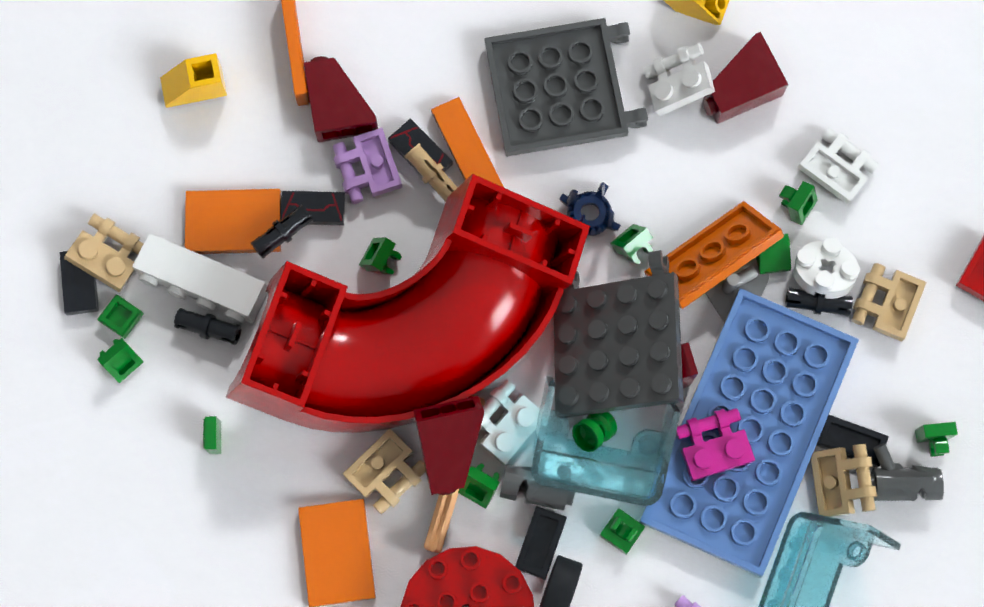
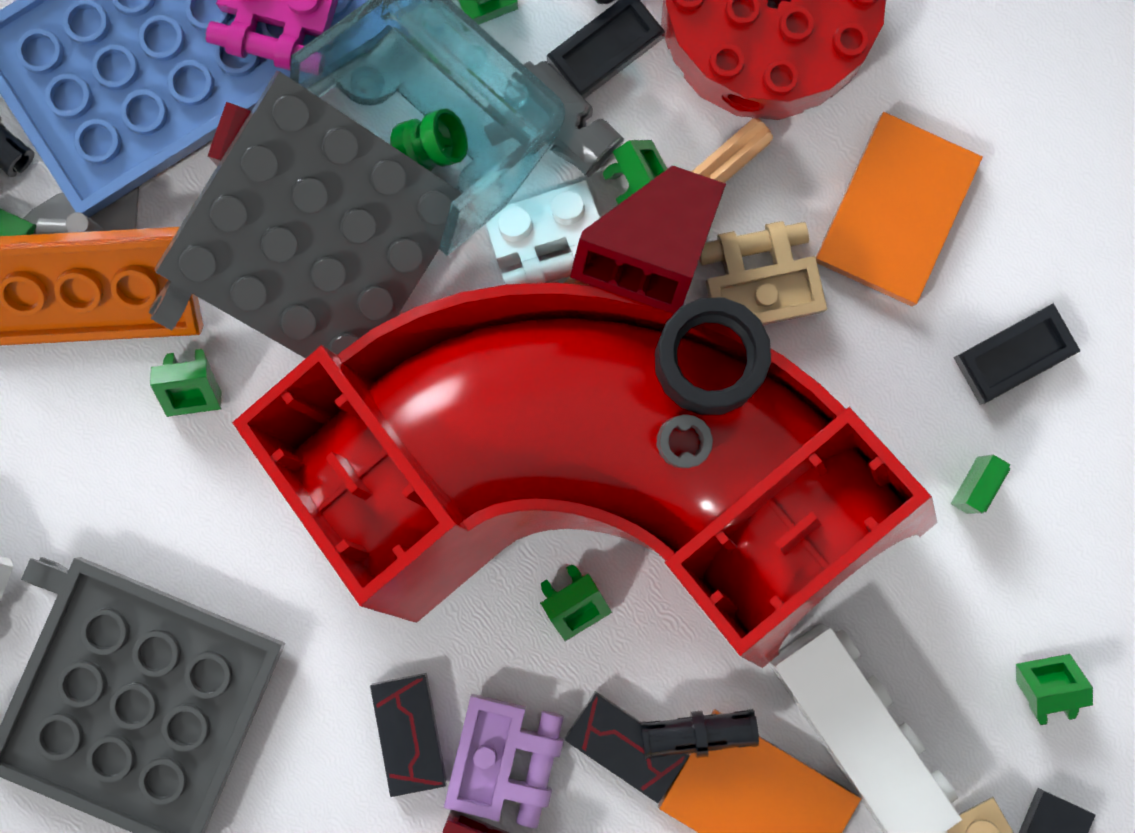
camera: 150 degrees left, 10 degrees up
(120, 316) = (1012, 757): green tile -> none
(207, 326) = (893, 657): black pin -> none
(231, 516) = (1017, 354): none -> black tile
(379, 357) = (685, 459): none -> dark grey bush
(379, 370) = (725, 313): none -> black tyre
(431, 171) = (413, 679): tan pin -> none
(464, 141) = (335, 688): orange tile -> none
(576, 202) = (192, 483): dark blue piece -> none

